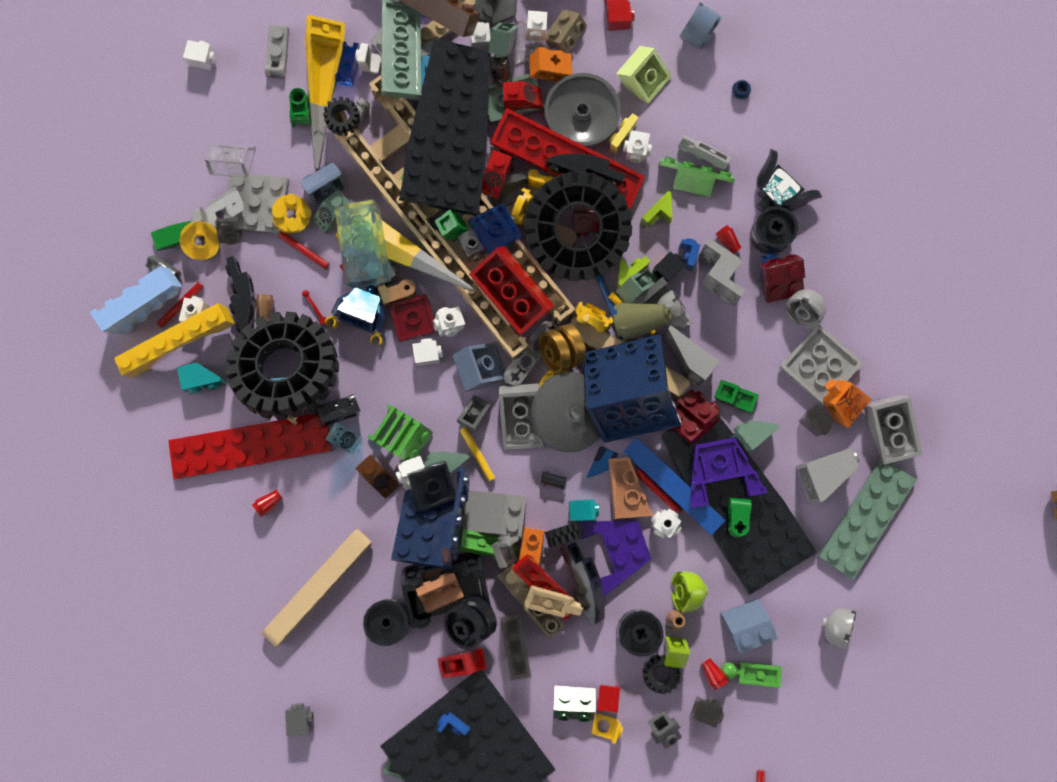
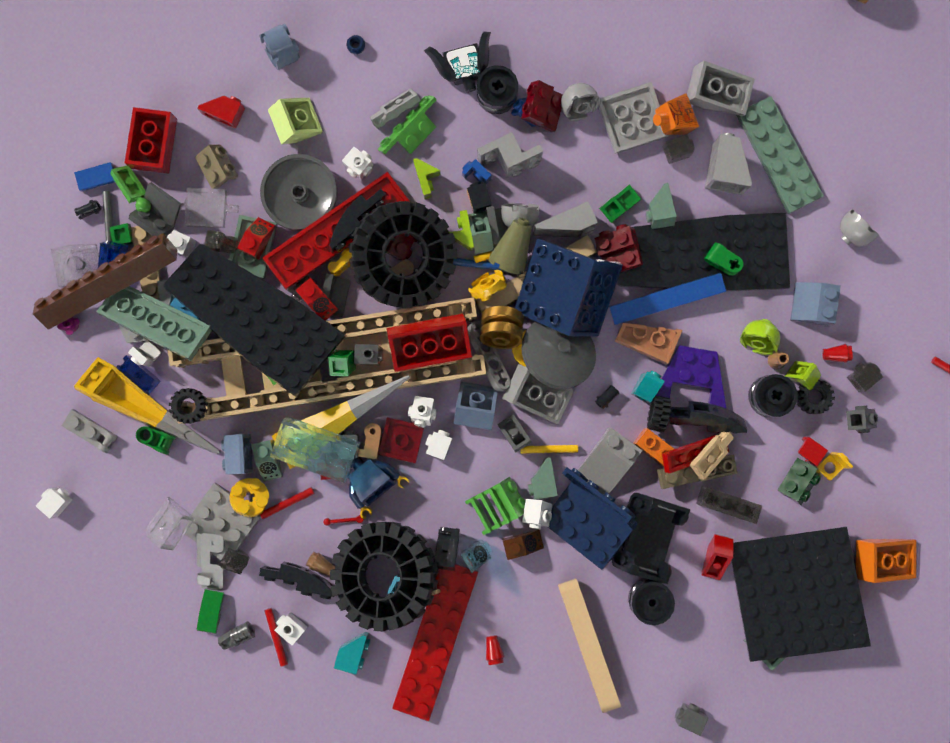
camera: 55 degrees left, 5 degrees up
(137, 302) = (256, 673): light blue wedge -> none
(149, 352) = (307, 658): yellow arch -> none
(188, 240) = (223, 600): yellow plate -> none
(363, 106) = (184, 382): light grey pin -> none
(432, 486) = (559, 502): black plate -> none
(440, 592) = (651, 544): nougat bracket -> none
(457, 725) = (770, 588): blue bracket -> none
(470, 623) = (691, 532): black wheel -> none
(480, 543) = (631, 482): bright green plate -> none
(495, 228) = (366, 326): clear blue plate -> none
(502, 39) = (195, 225): sand green slope -> none
(504, 551) = (646, 471): light grey bracket -> none
(520, 207) = (353, 290): yellow plate -> none
(536, 26) = (199, 189): white brick -> none
(550, 64) = (241, 197): orange brick -> none
(600, 462) = (612, 348): clear blue sticker -> none
(626, 126) = (333, 161): light yellow plate -> none
(658, 491) = (663, 314): red bar -> none
(658, 523) = (688, 323): white brick -> none
(721, 462) = (670, 250): dark purple wing -> none
(728, 238) = (481, 132): red cone -> none
(754, 673) = (855, 320): bright green plate -> none

